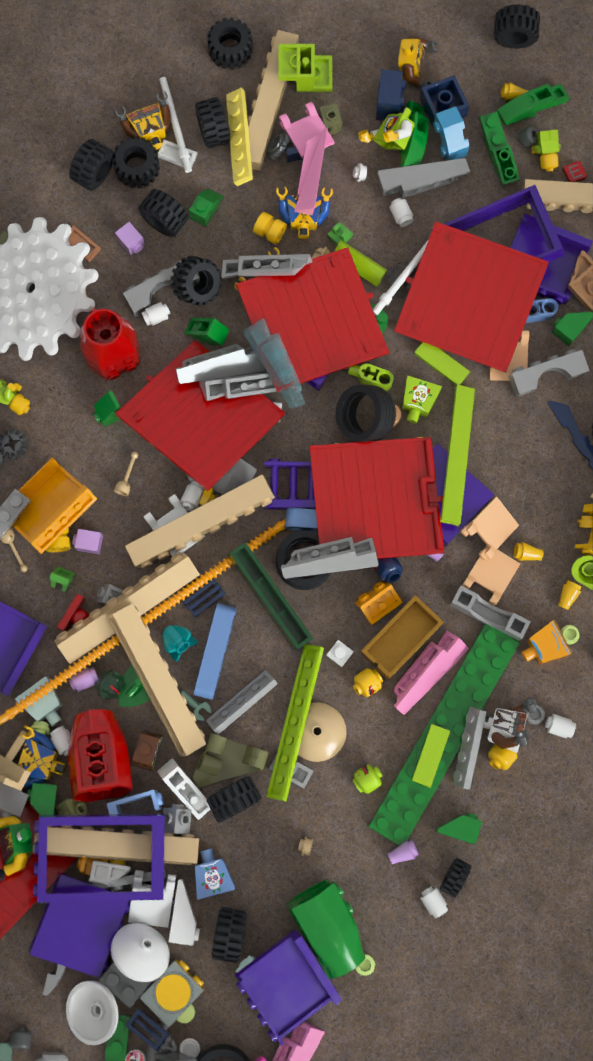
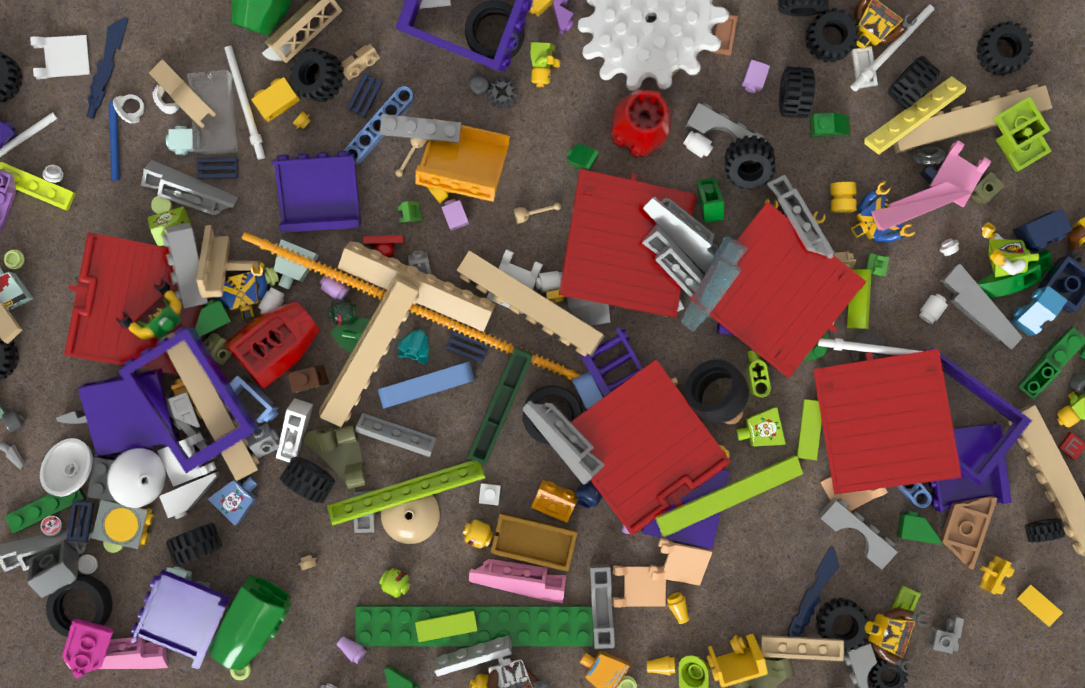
camera: 60 degrees right, 10 degrees up
(196, 706) = (370, 396): sand green bar -> none

